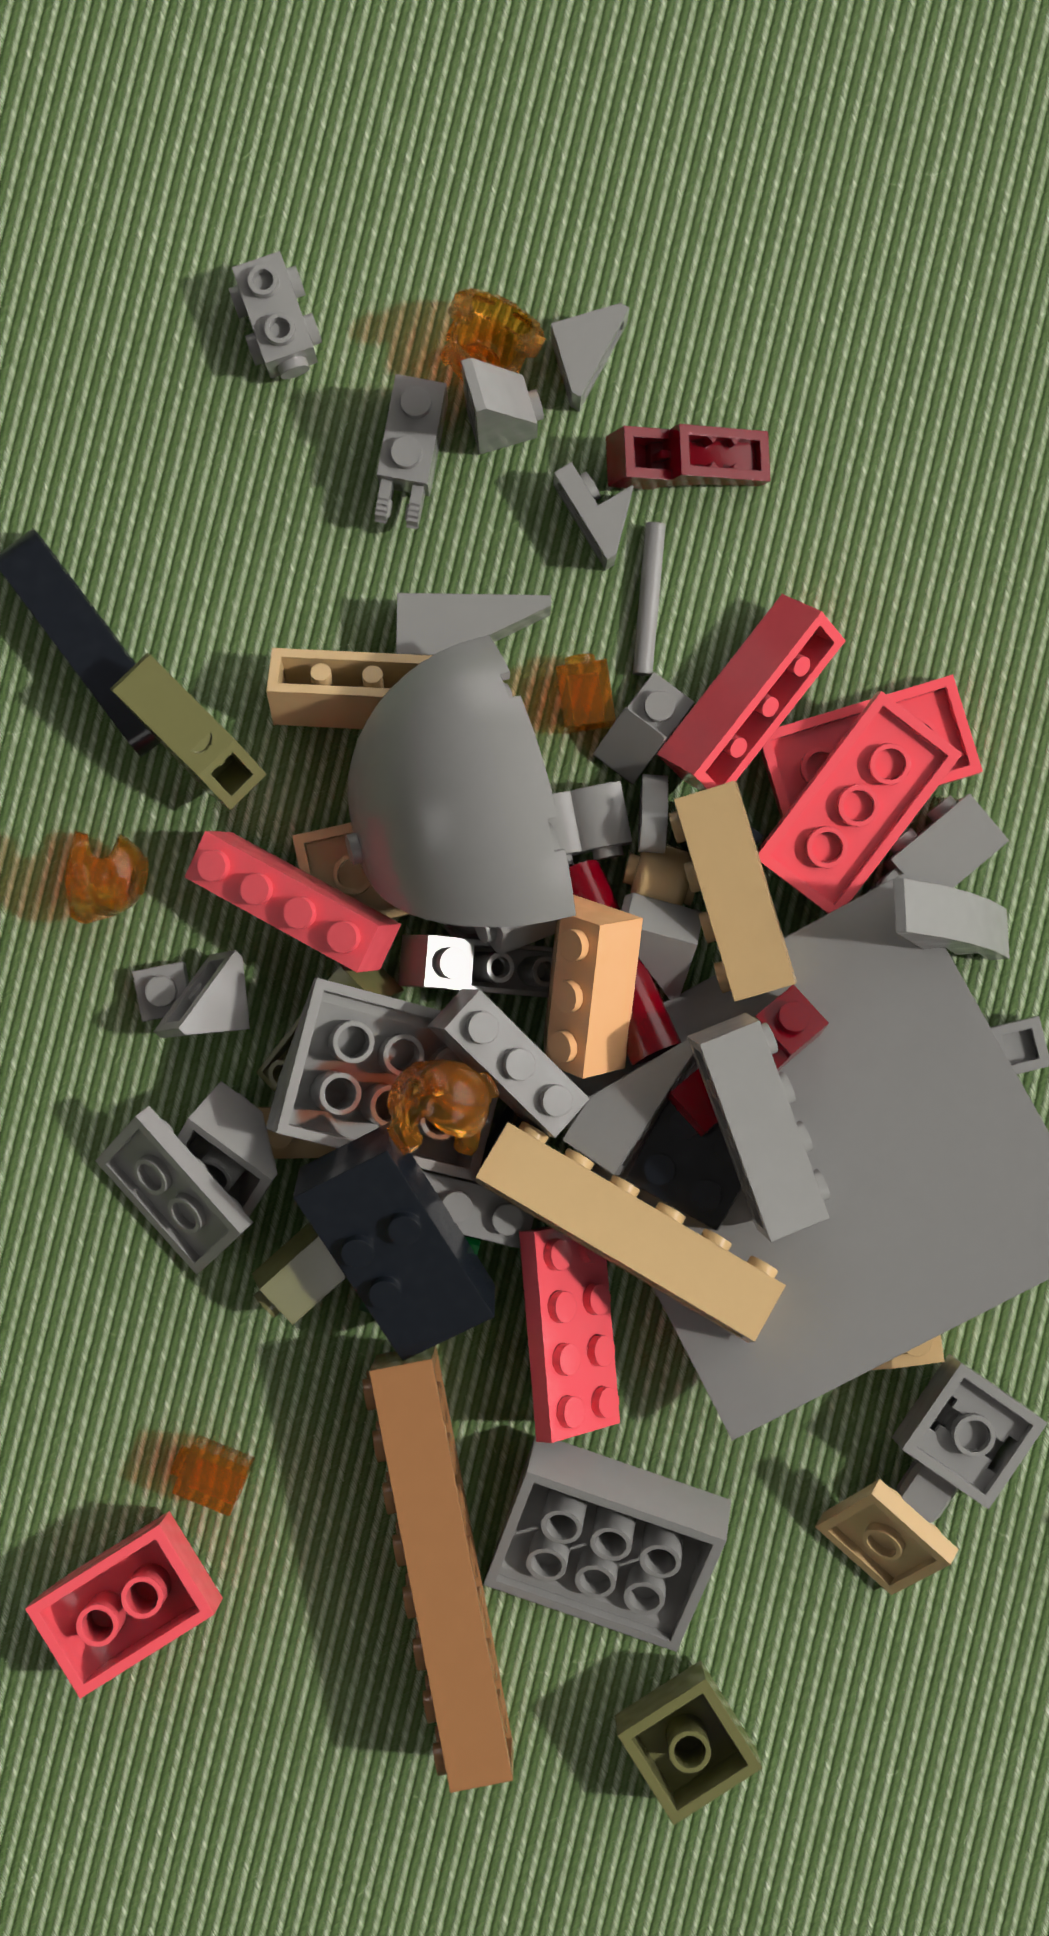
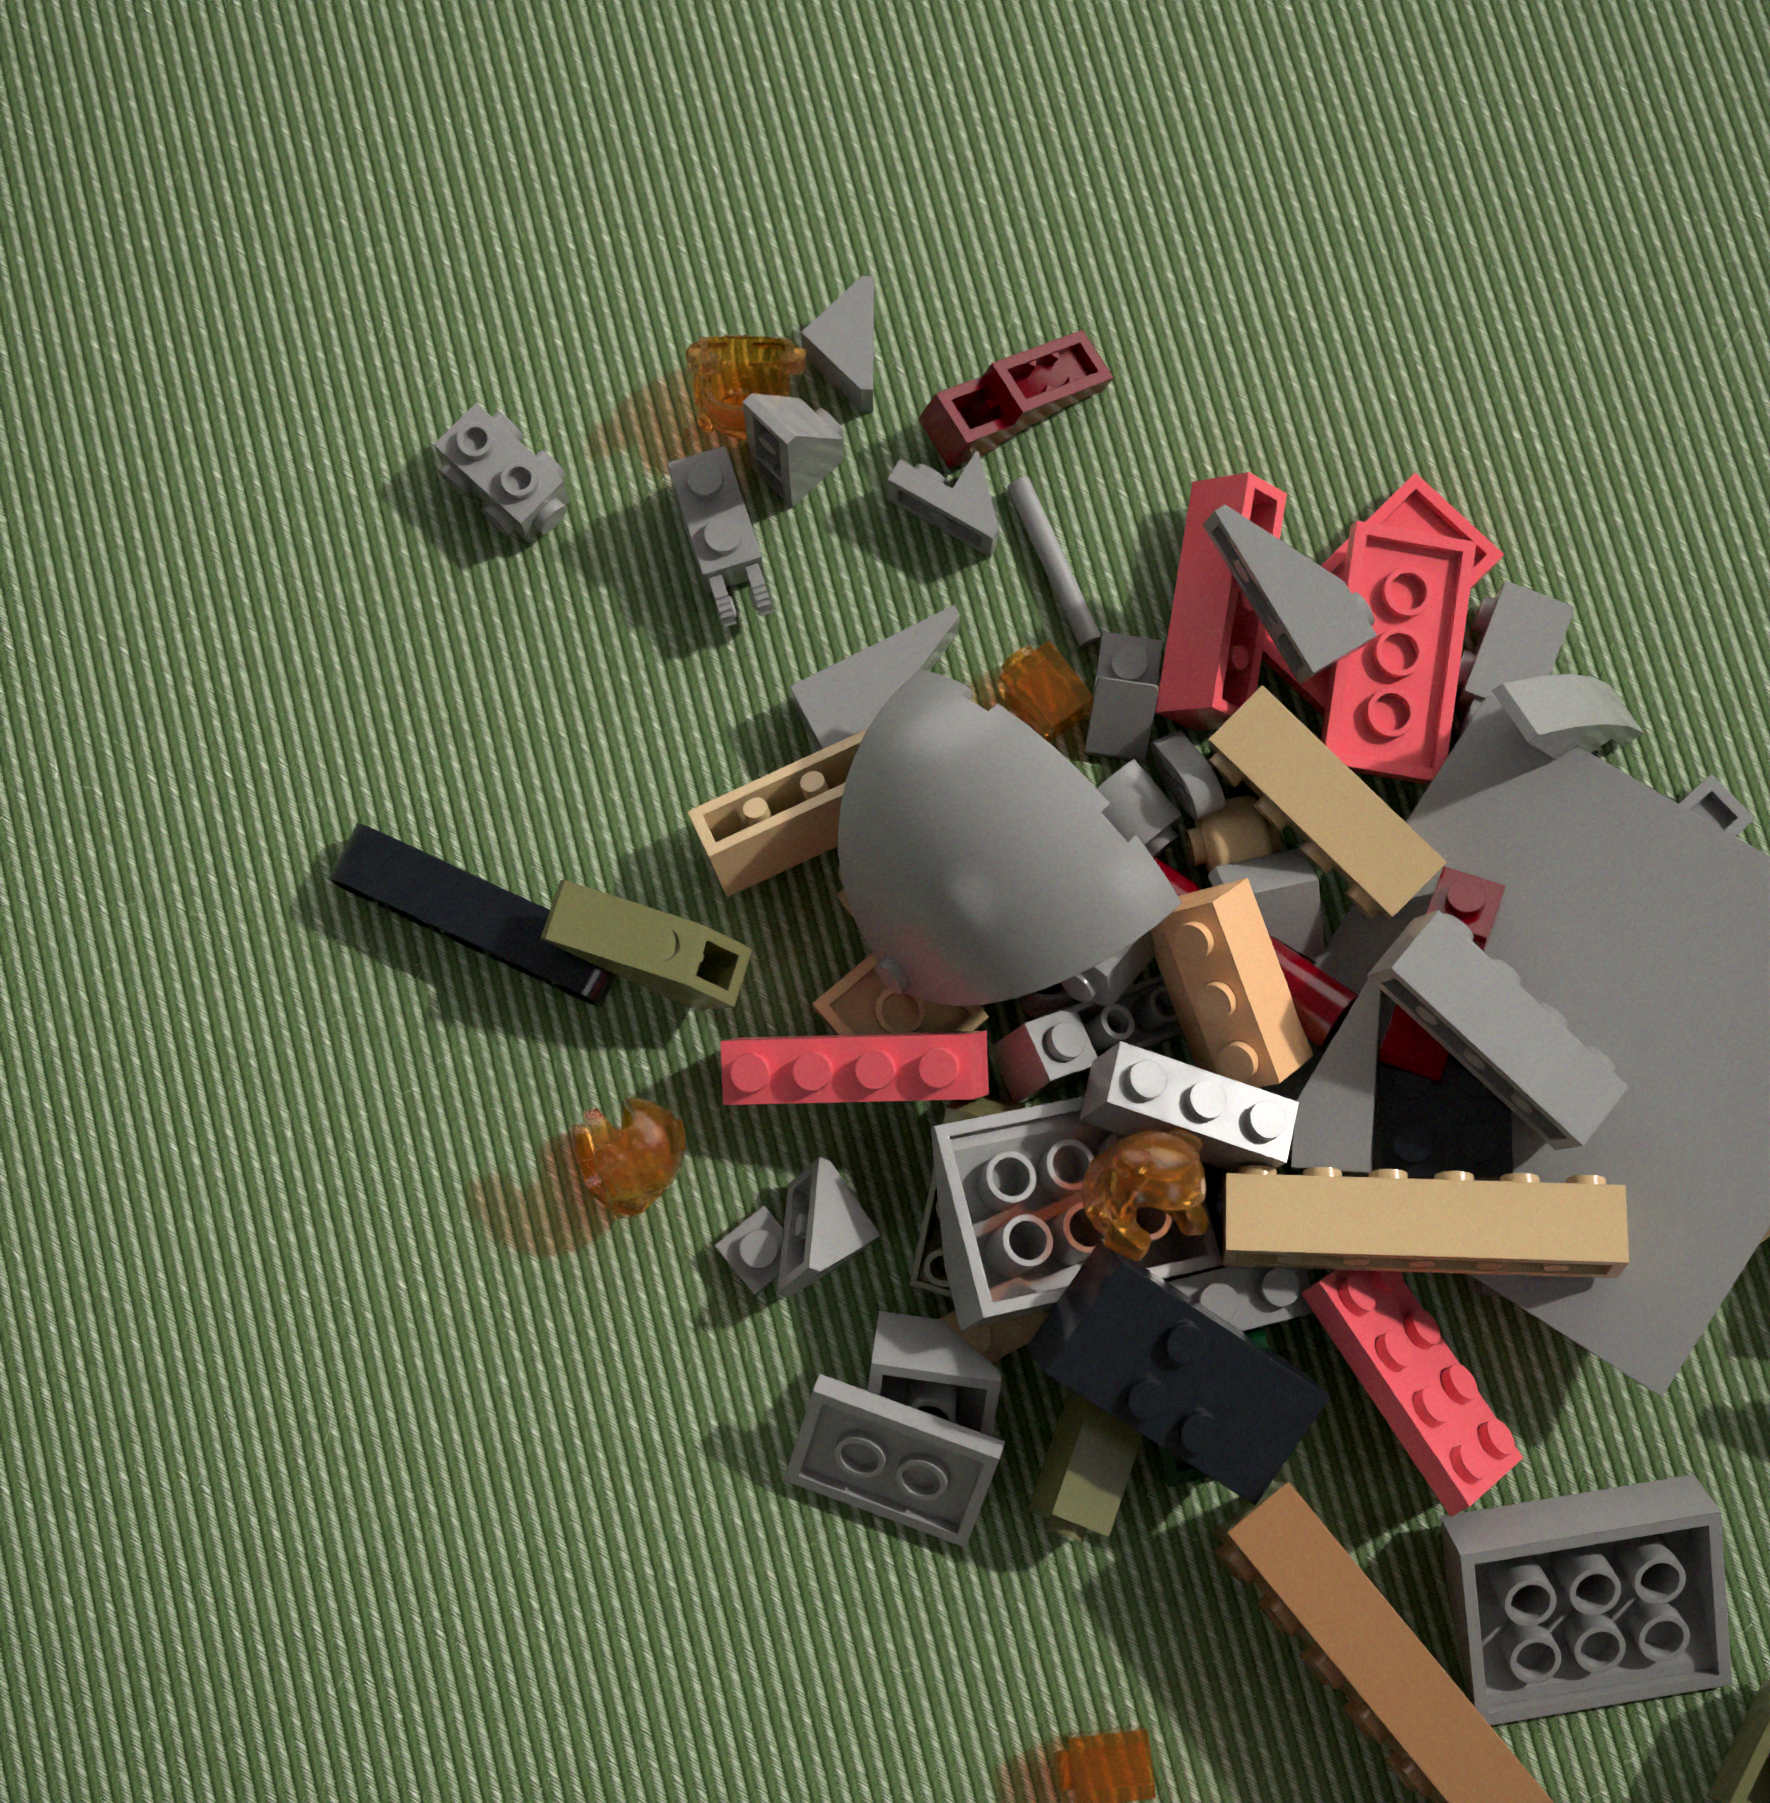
camera: 30 degrees left, 10 degrees down
(800, 736) = (1297, 600): none -> light grey slope

